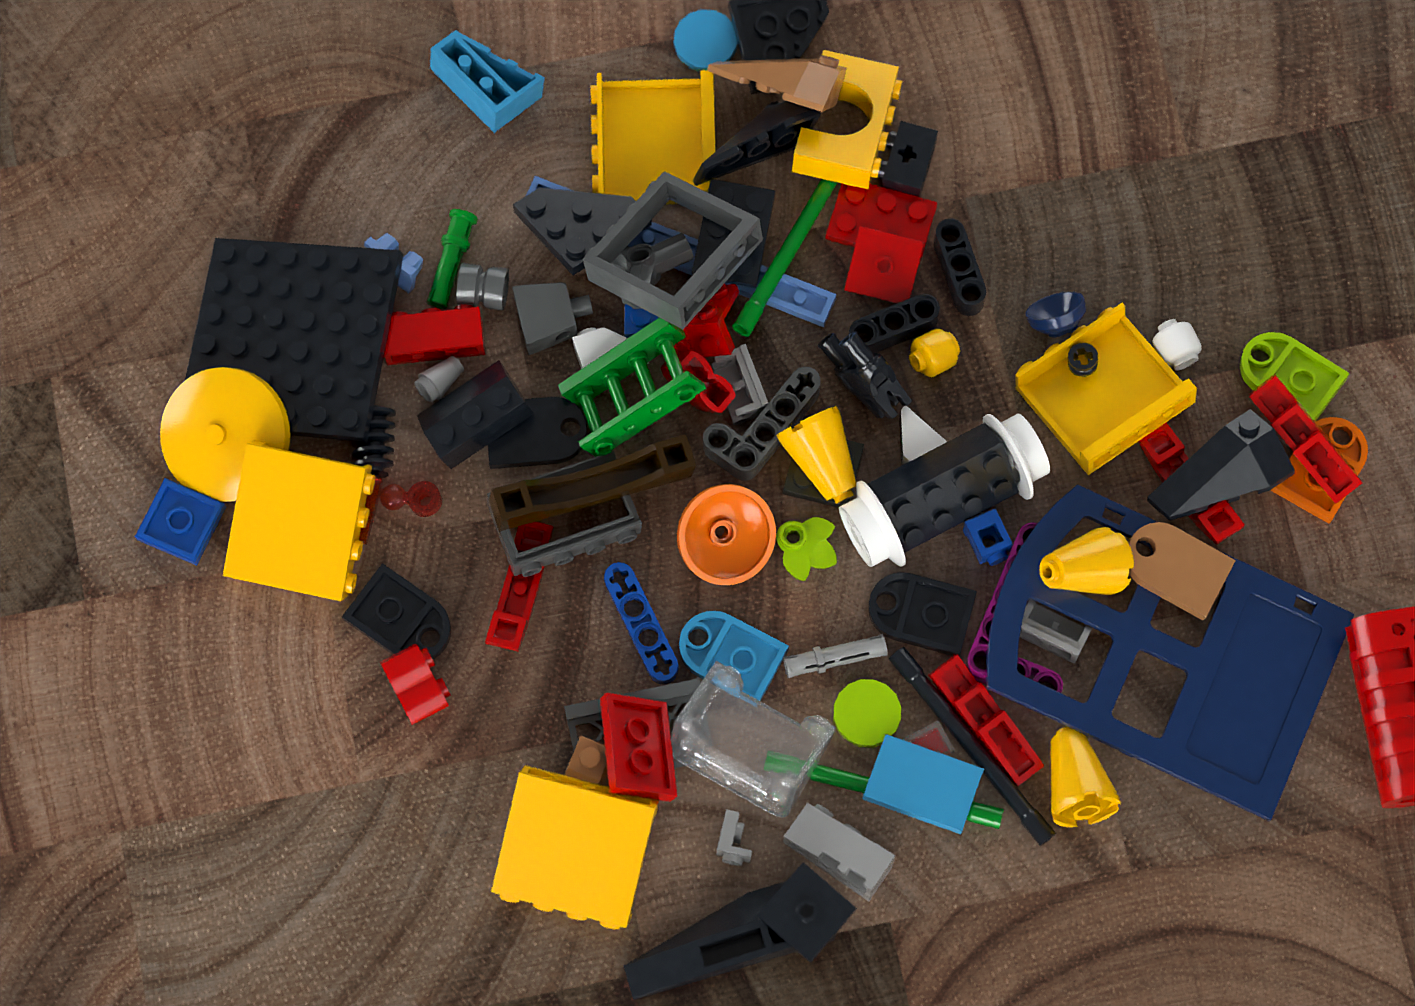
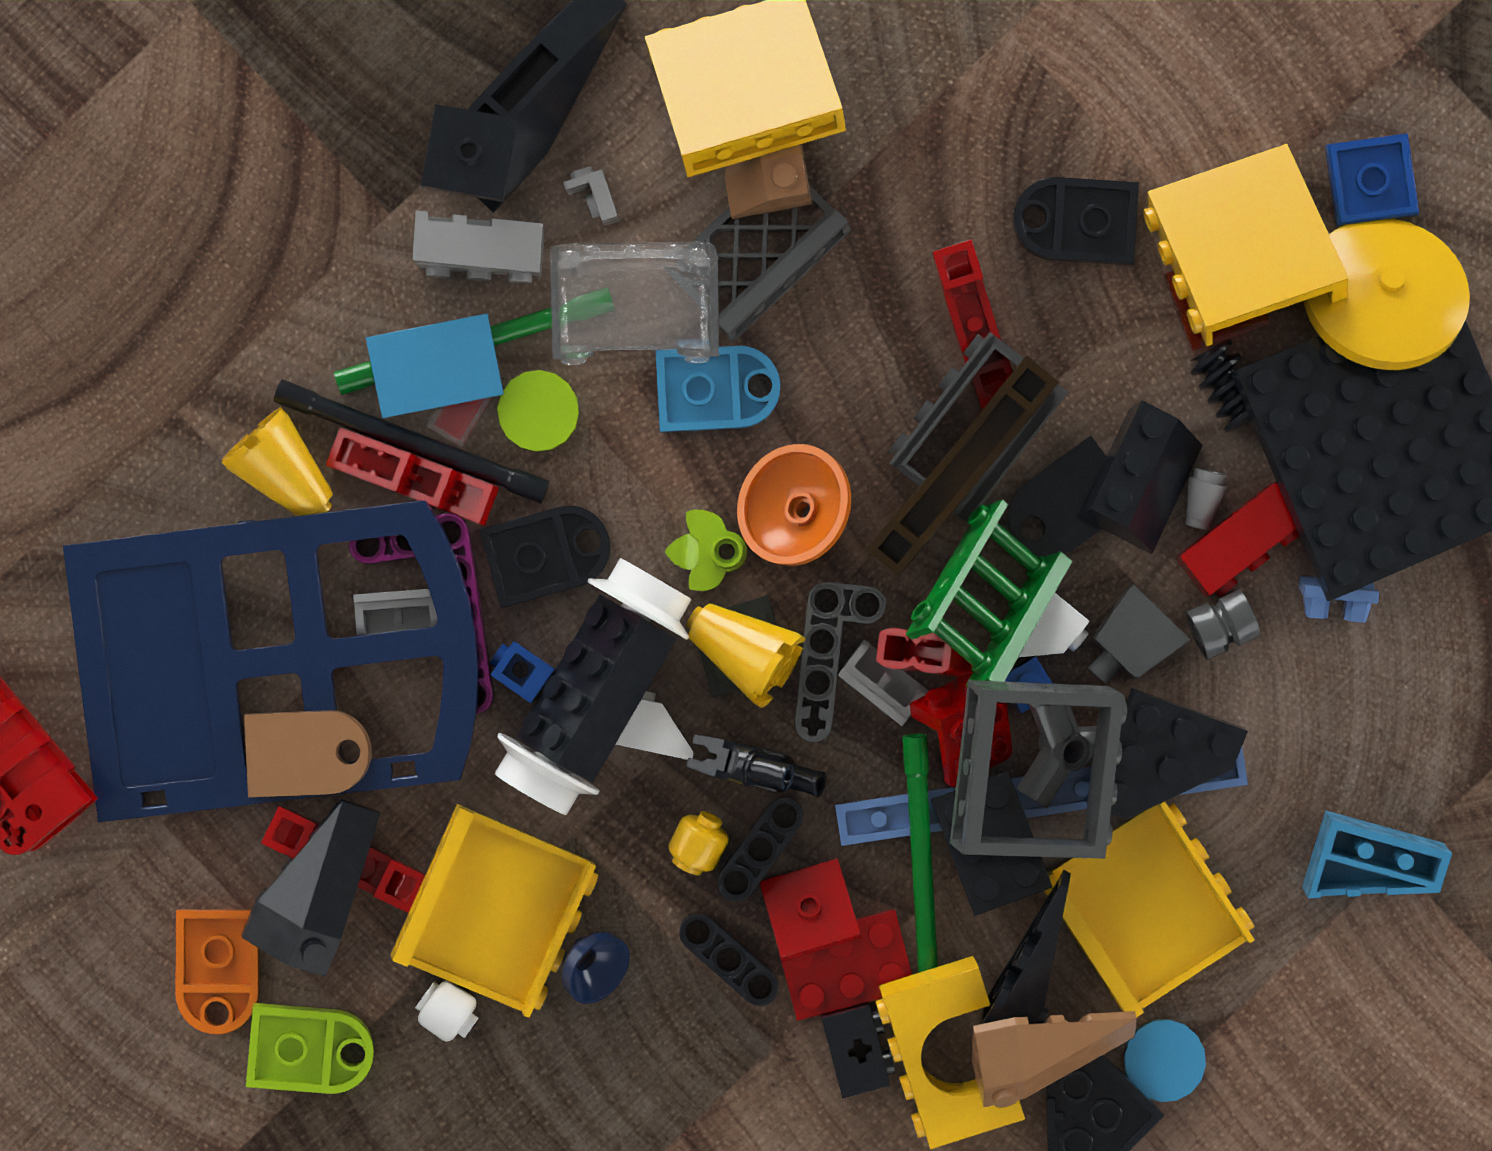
camera: 135 degrees right, 15 degrees up
(395, 497) = (1166, 341): clear red plate -> none
(415, 684) = (1016, 155): red brick -> none
(454, 245) = (1284, 656): green pin -> none
(638, 624) = (824, 368): blue beam -> none
(638, 747) = (742, 217): red plate -> none
(834, 656) = (606, 449): light grey pin -> none
(1075, 364) = (533, 941): black bush -> none
(1090, 564) = (396, 696): yellow cone -> none
(1305, 439) = (250, 980): red slope -> none

